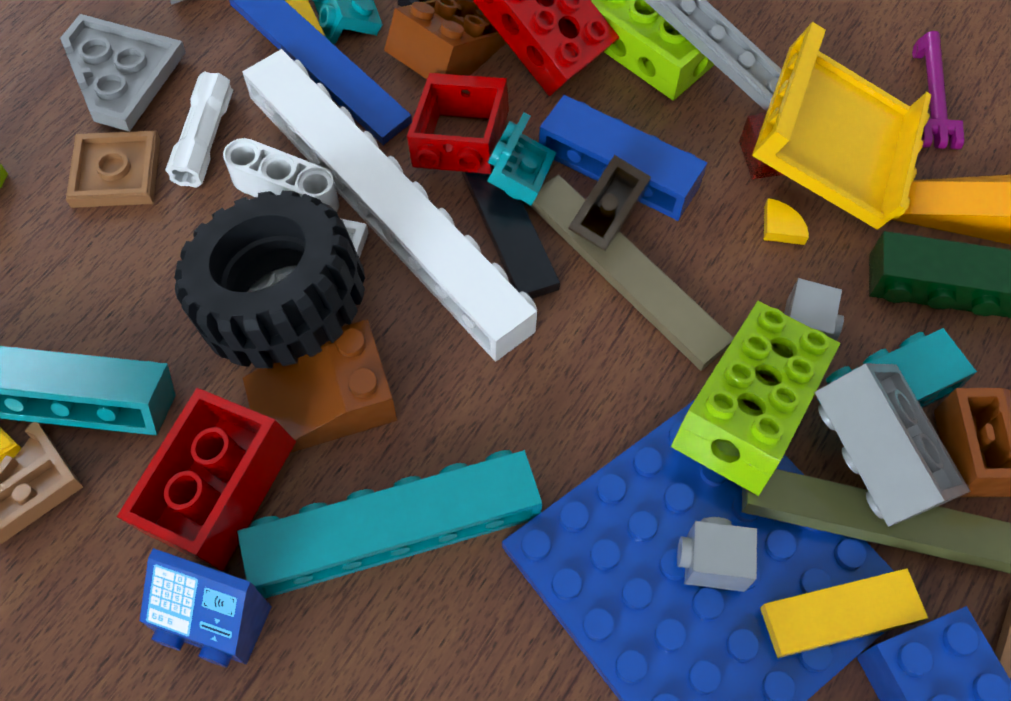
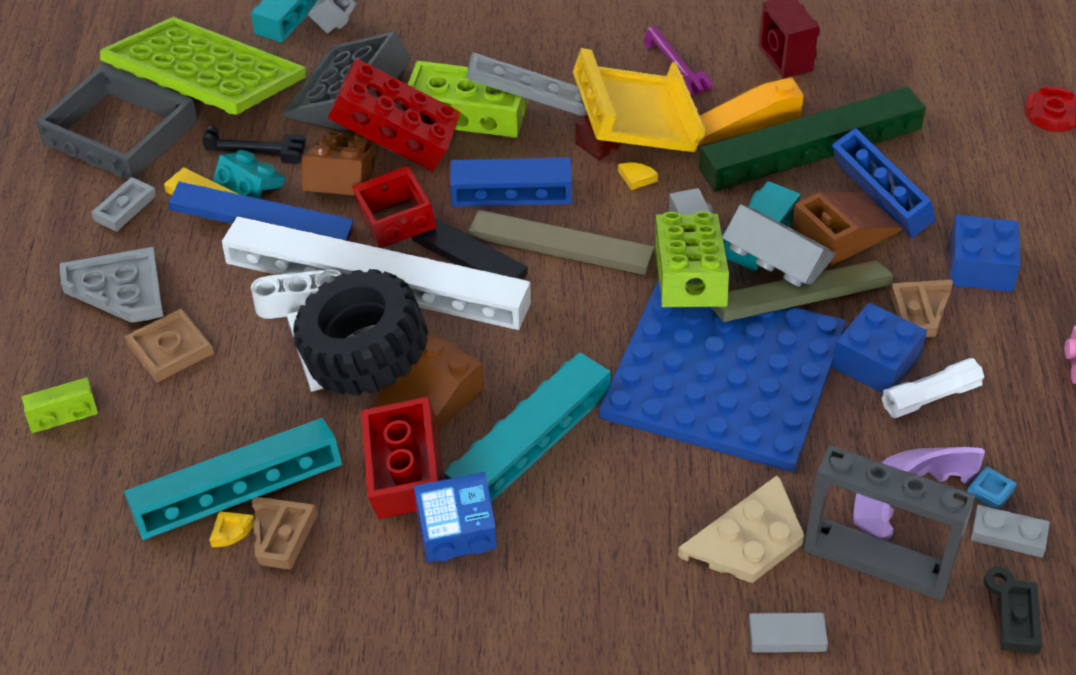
camera: 30 degrees left, 15 degrees down
(192, 152) = (221, 308): white axle -> none
(520, 163) = (452, 212): teal bracket -> none
(610, 203) = (529, 203): dark brown slope -> none
(719, 555) = (727, 345): light grey brick -> none
(843, 613) = (809, 342): yellow tile -> none

